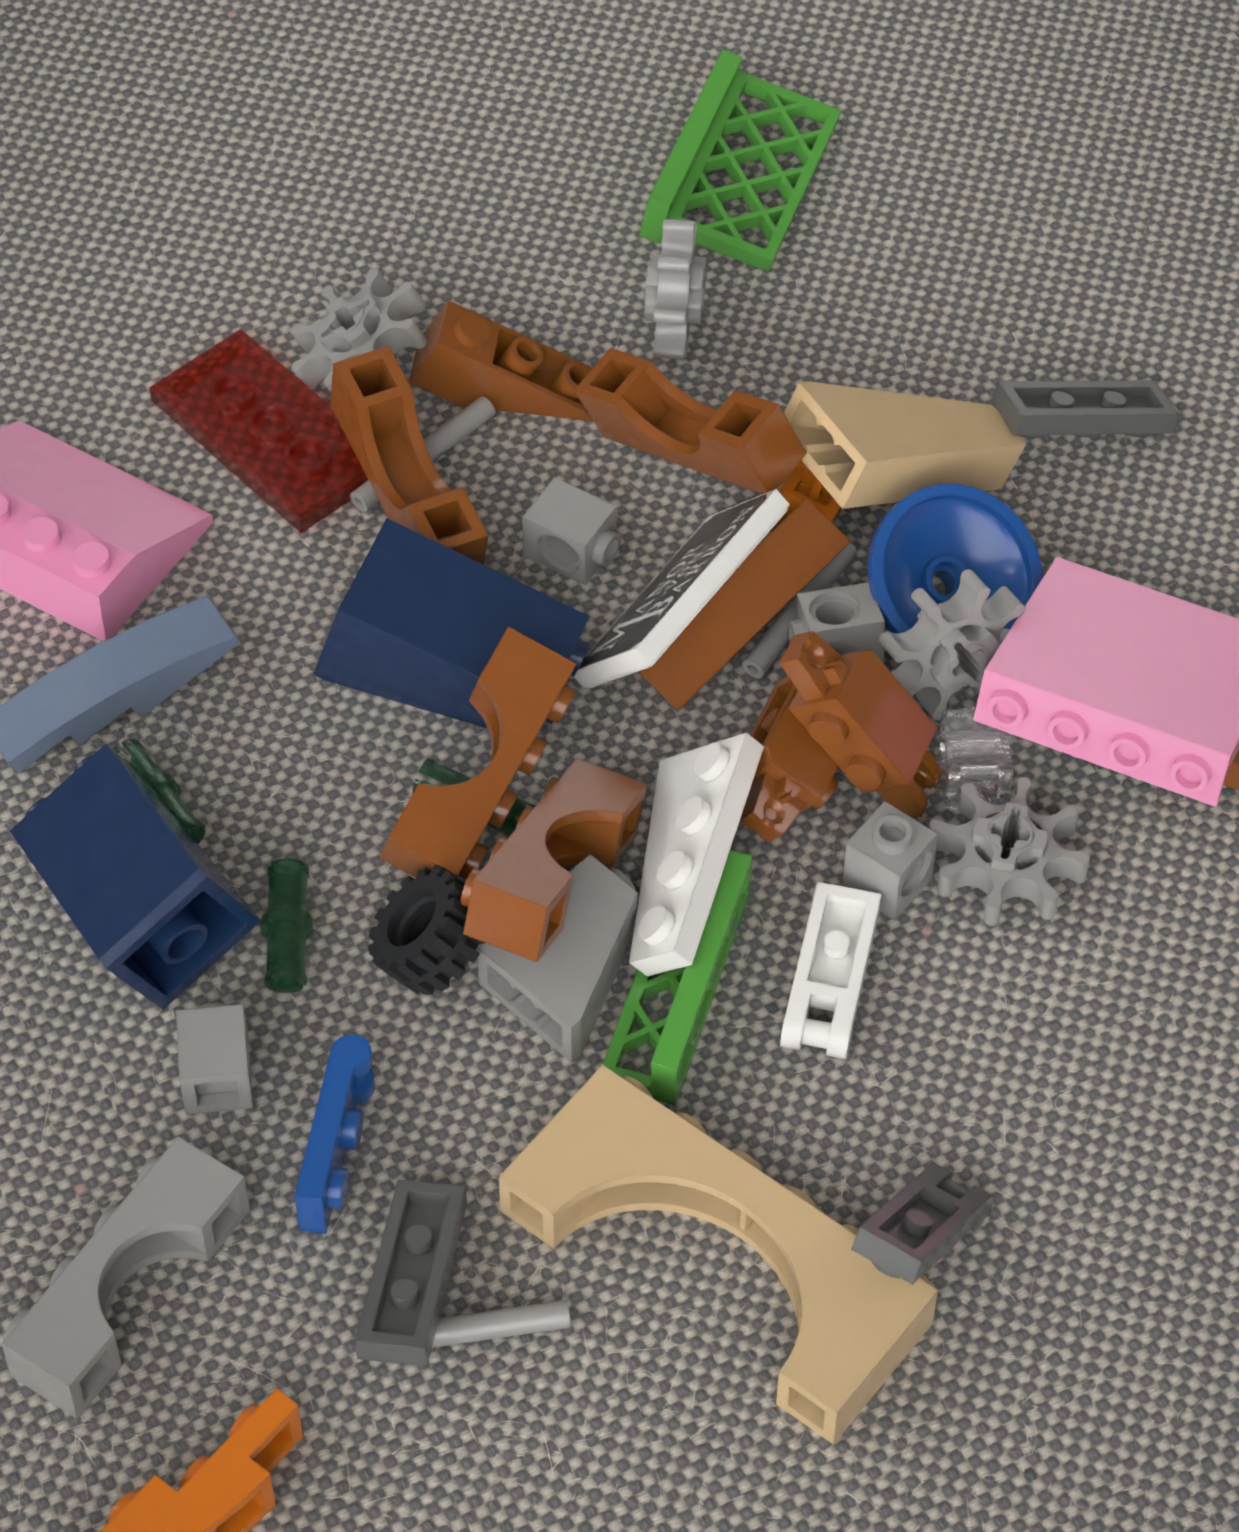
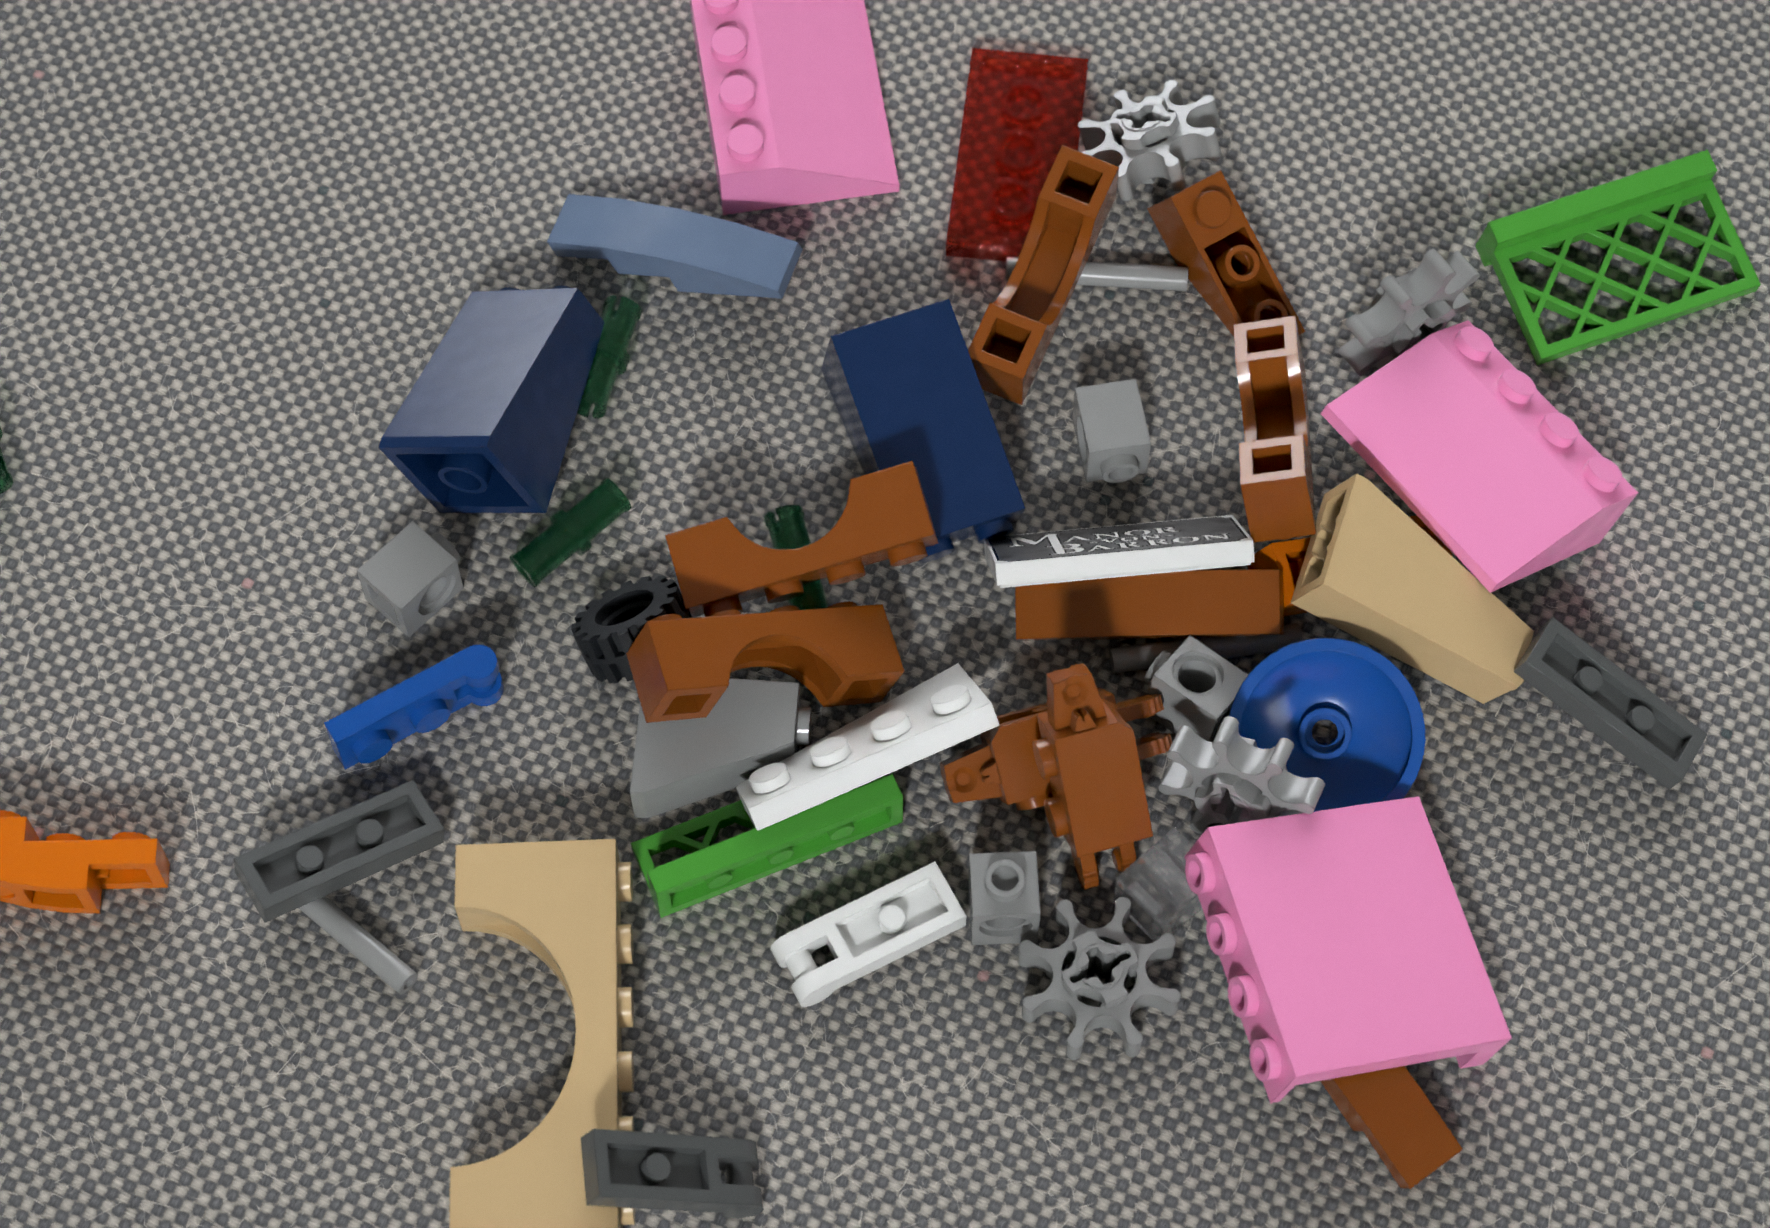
camera: 50 degrees right, 10 degrees up
(177, 1210) = (106, 674): light grey arch -> none
(830, 327) = (1481, 456): none -> bright pink slope

